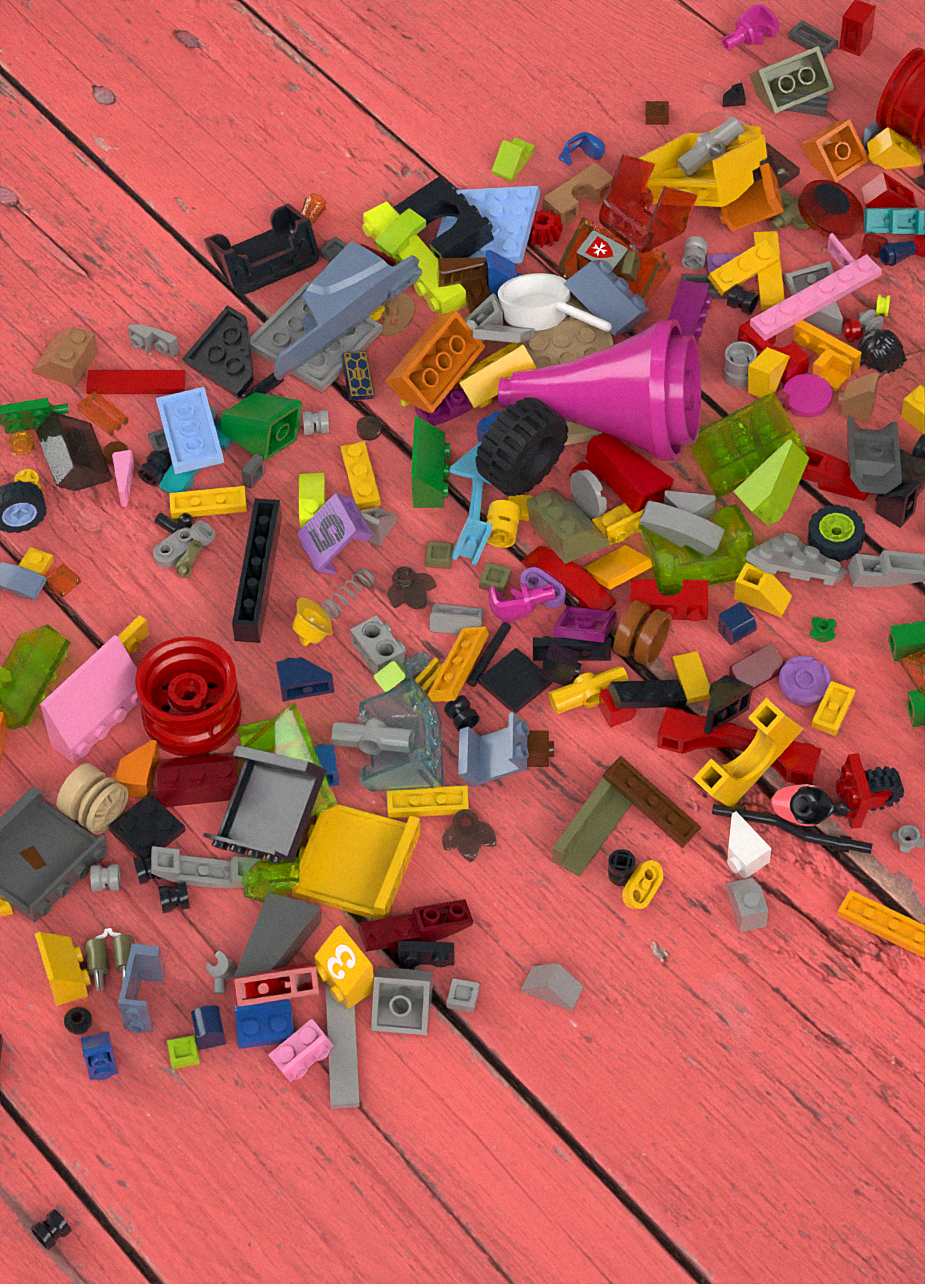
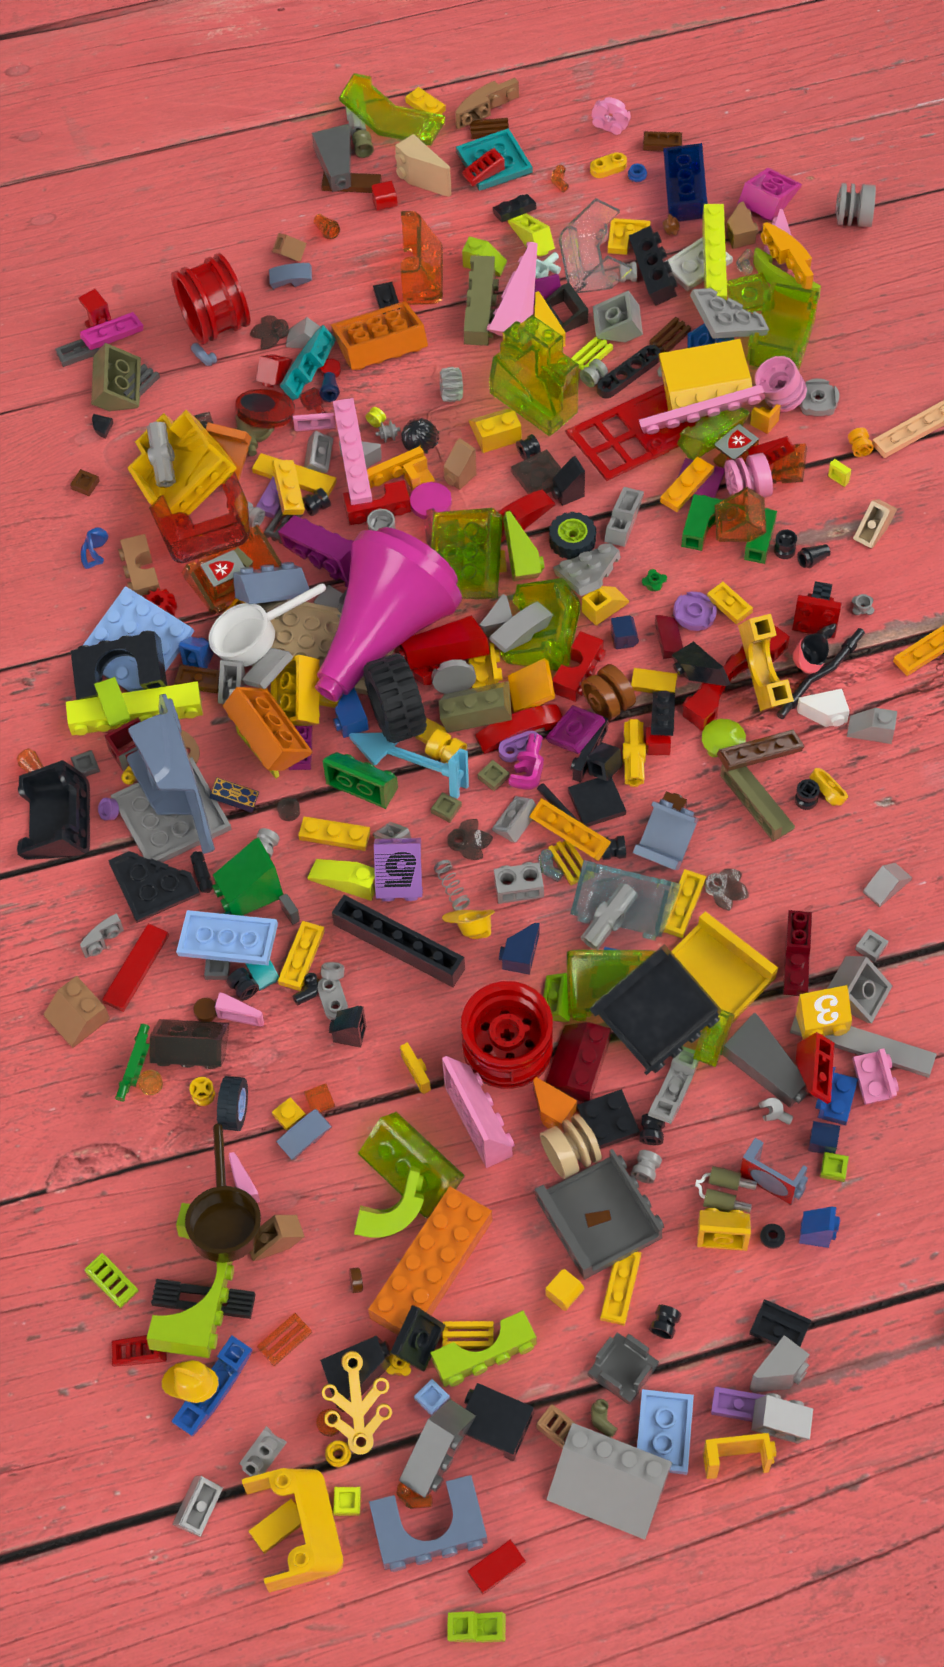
camera: 65 degrees left, 5 degrees up
(112, 424) = (155, 1009): clear orange tile -> none
(144, 571) = (349, 1026): none -> black slope
(174, 897) = (689, 1121): black wheel -> none
(186, 562) = (351, 991): olive arm -> none
(292, 287) = (108, 809): none -> medium lavender tile
(390, 675) = (561, 879): lime slope -> none
(426, 953) = (821, 964): black plate -> none
(454, 270) = (179, 676): reddish brown slope -> none
(512, 158) = (68, 599): lime slope -> none
(658, 764) = (722, 734): none -> lime dish
(752, 27) = (44, 381): dark pink piece -> none
(766, 372) = (404, 513): yellow slope -> none
(836, 150) = (204, 382): orange slope -> none
(849, 51) = (111, 331): none -> dark pink plate
(851, 329) = (388, 445): red plate -> none
(874, 457) = (525, 477): dark grey piece -> none
(893, 151) = (230, 347): yellow slope -> none

